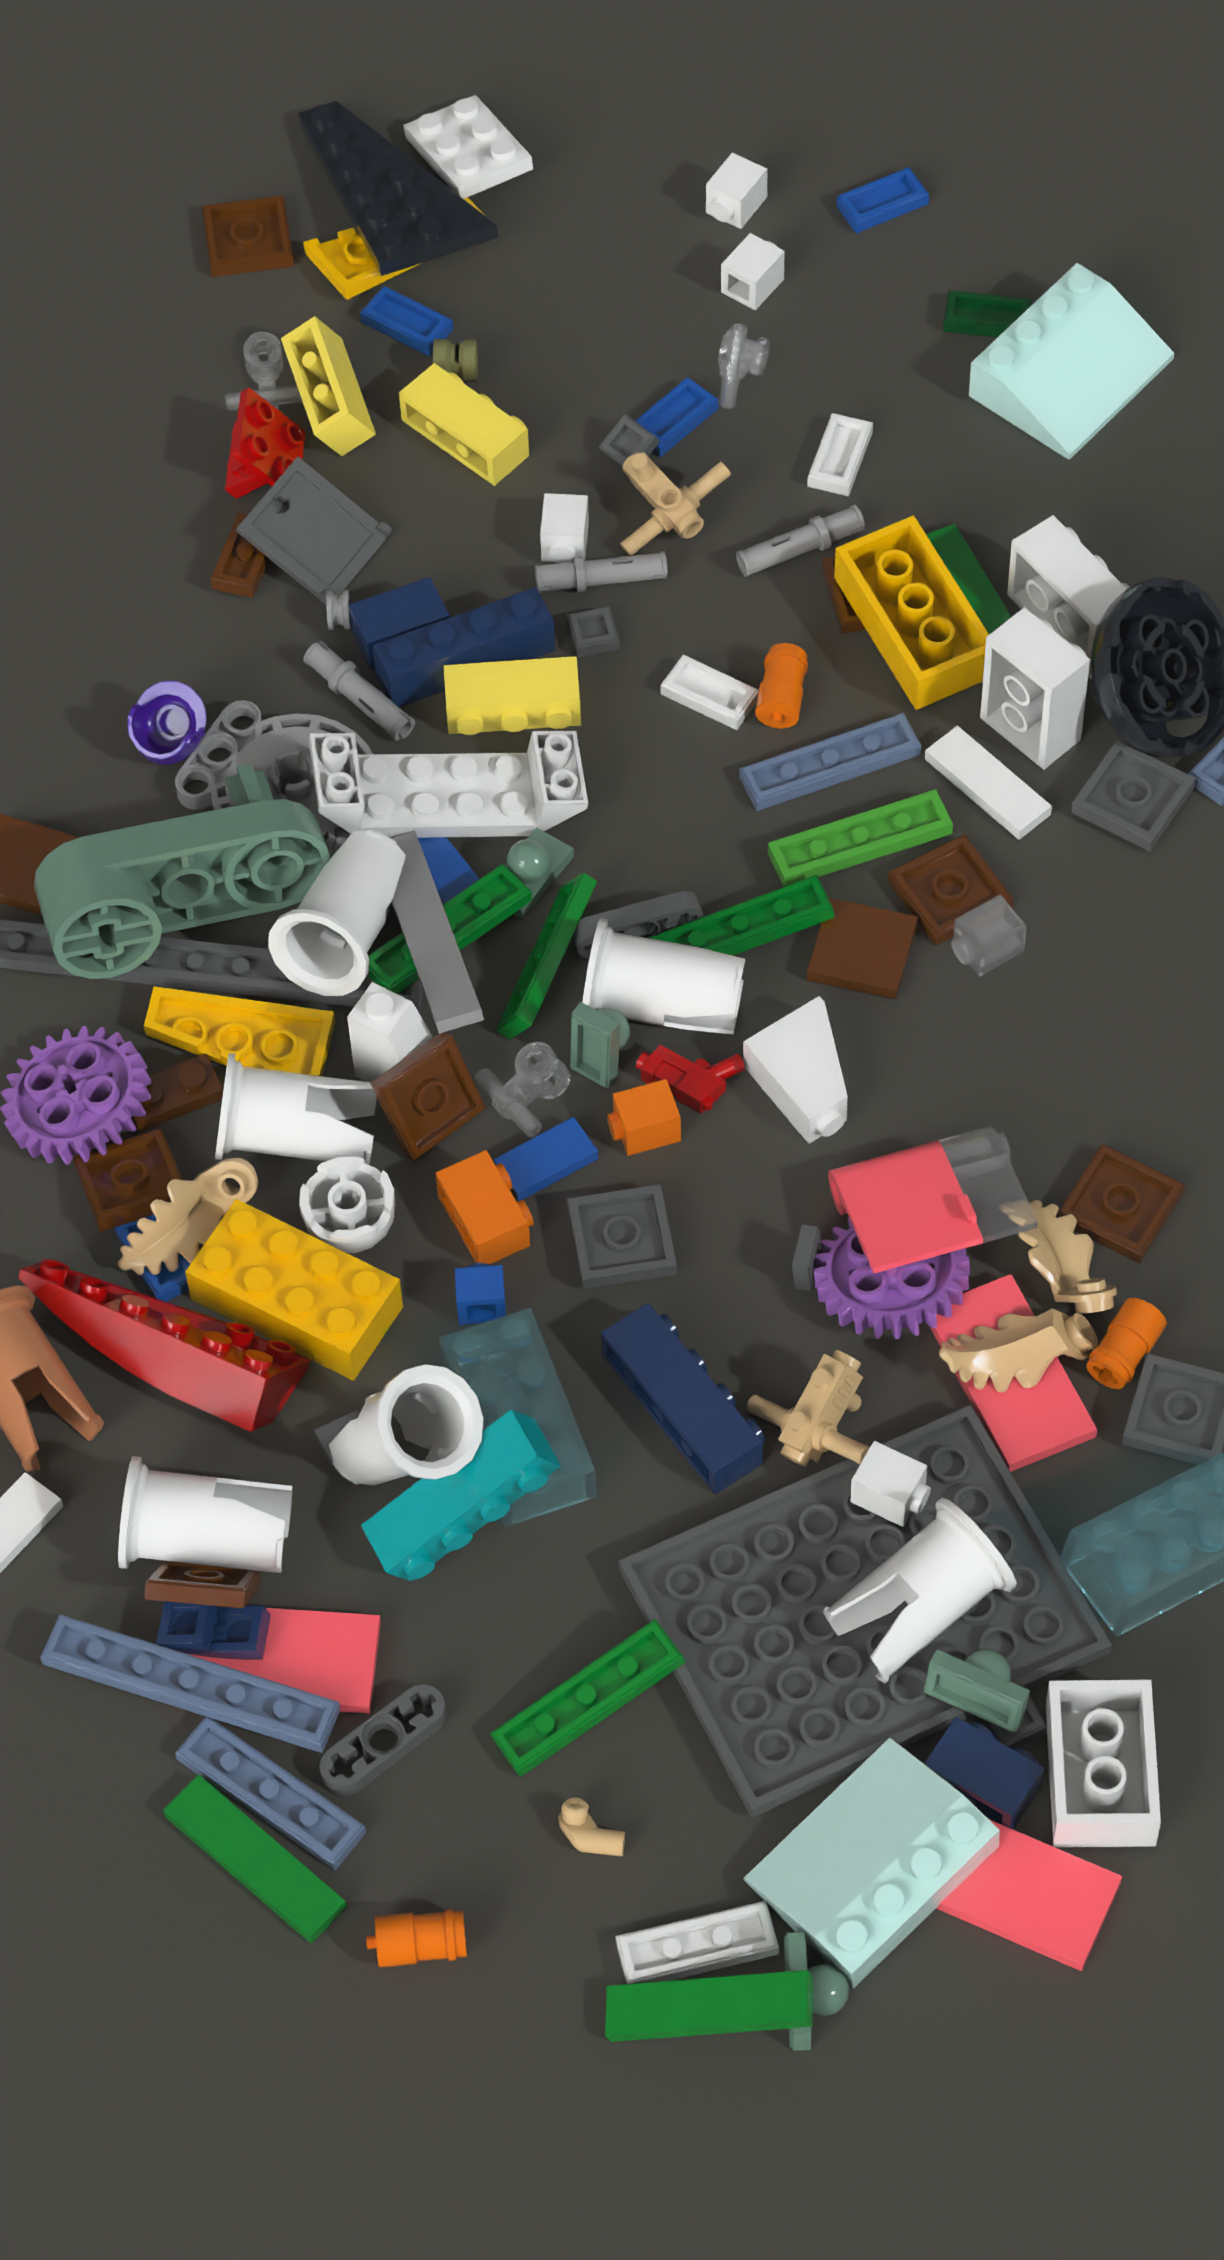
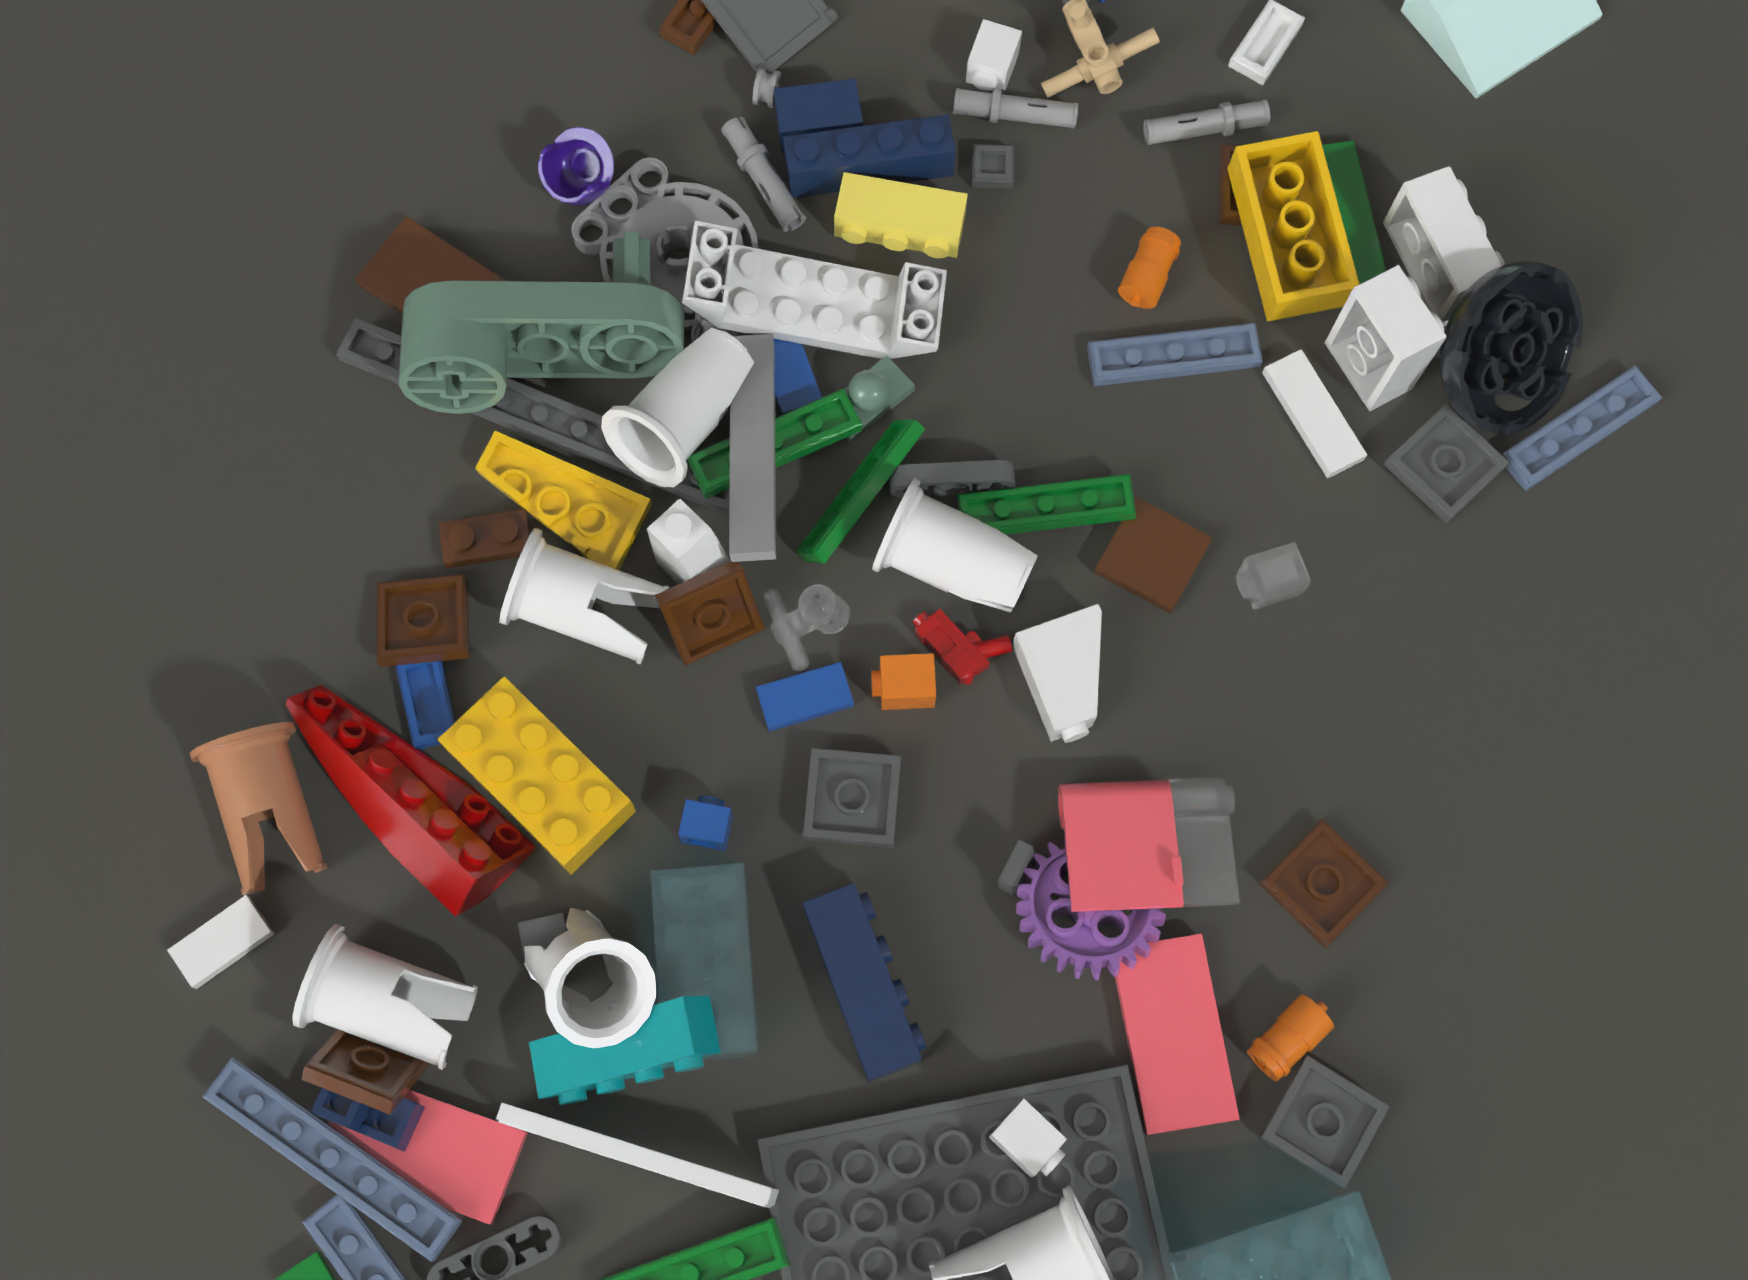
camera: 10 degrees right, 15 degrees up
(76, 1095) = (394, 523): medium lavender gear -> none
(188, 1218) = (463, 675): tan plant -> none
(348, 1204) = (610, 692): white cylinder -> none
(483, 1208) = (732, 736): orange brick -> none
(503, 1599) = (637, 1155): none -> white tile
(597, 1042) = (881, 596): sand green tile -> none
(709, 692) = (1082, 255): white tile -> none
(813, 1423) = (973, 1046): tan piece -> none
(860, 838) = (1180, 442): bright green plate -> none
(946, 886) = (1249, 513): reddish brown tile -> none
(1018, 1348) = (1188, 1017): tan plant -> none
(1066, 1260) = (1254, 935): tan plant -> none

